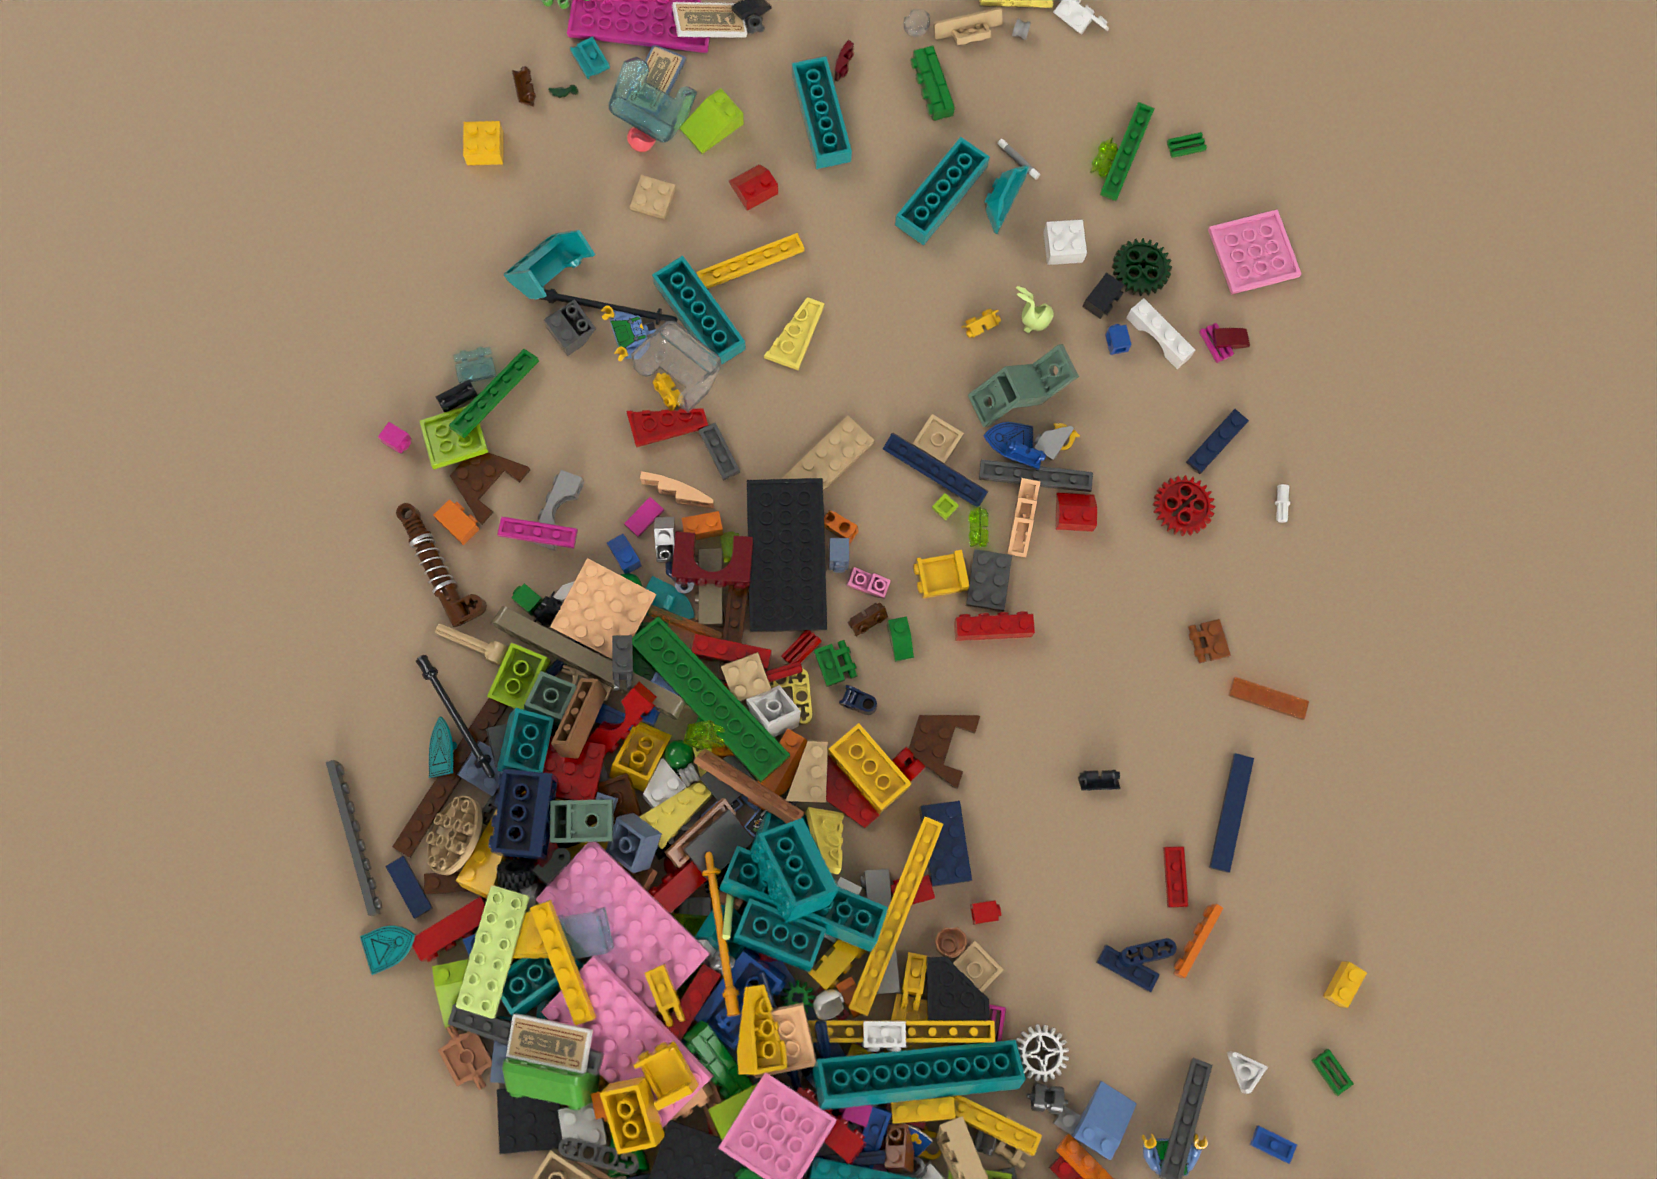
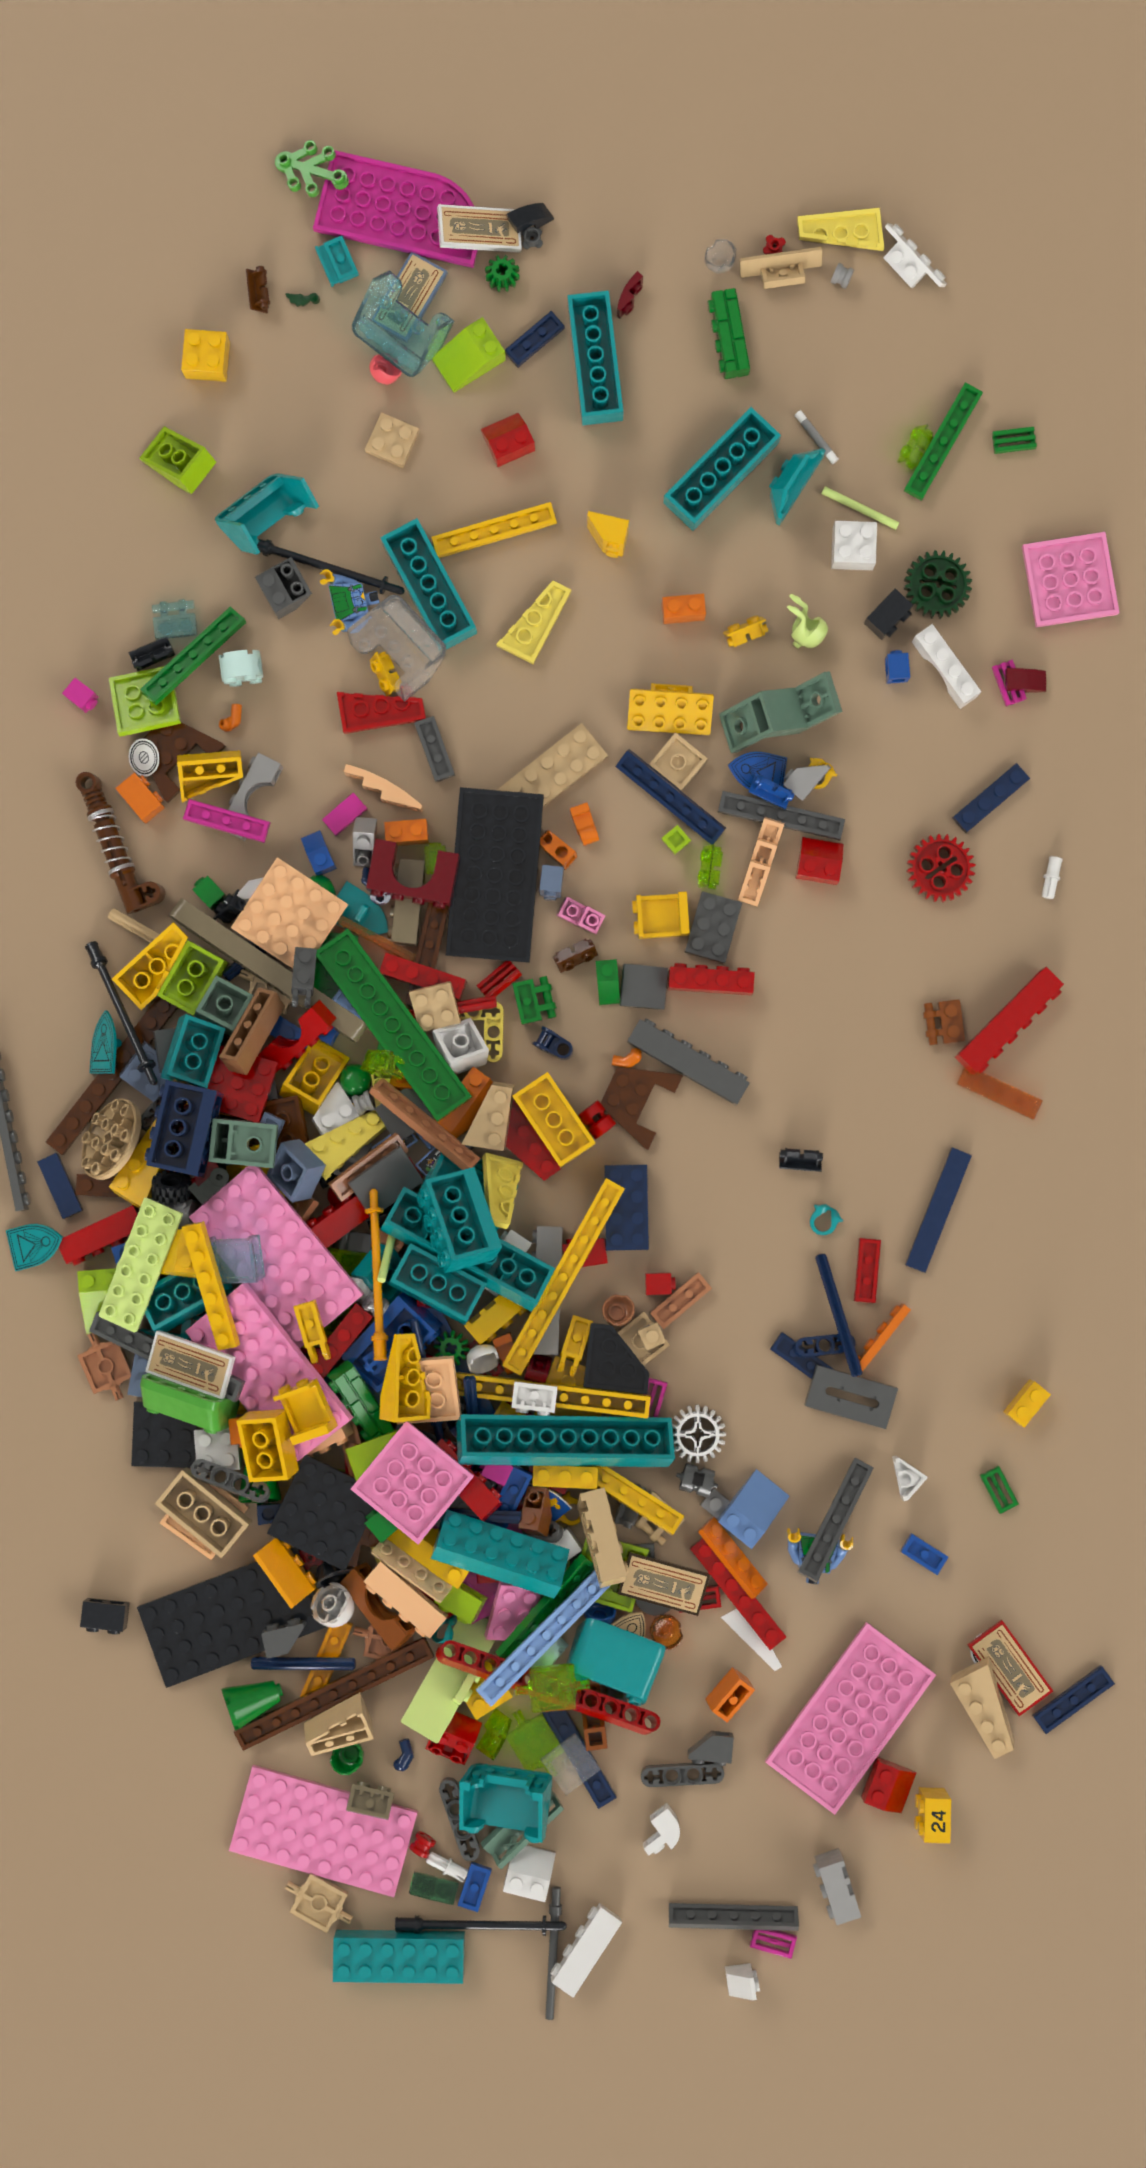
camera: 15 degrees right, 10 degrees up
(457, 486) = (144, 757): none -> white sticker
(467, 230) = (178, 459): none -> lime slope
(477, 673) = (149, 969): none -> yellow wedge
(515, 491) = (207, 771): none -> yellow wedge
(535, 446) = (232, 721): none -> orange arm
(538, 398) = (241, 667): none -> light aqua brick
(733, 54) = (502, 265): none -> green gear
(766, 104) = (534, 339): none -> dark blue tile
(850, 251) = (608, 533): none -> yellow slope
(861, 501) = (584, 823): none -> orange leg
(882, 1008) = (538, 1368): none -> dark red slope
(925, 309) = (683, 608): none -> orange brick
(925, 396) = (670, 710): none -> yellow bracket
(929, 708) = (629, 1060): none -> orange arm
(933, 639) = (643, 986): none -> dark grey slope
(964, 8) = (771, 240): none -> red plate
(984, 703) = (688, 1062): none -> dark grey brick
(986, 962) = (651, 1335): none -> tan brick
(1007, 926) = (680, 1300): none -> nougat plate
(1065, 212) = (860, 508): none -> yellowish green bar
(1139, 831) = (835, 1218): none -> teal piece
(1153, 983) = (828, 1377): none -> dark grey piece
(1157, 922) = (838, 1315): none -> dark blue axle
(1267, 632) = (1009, 1021): none -> red brick

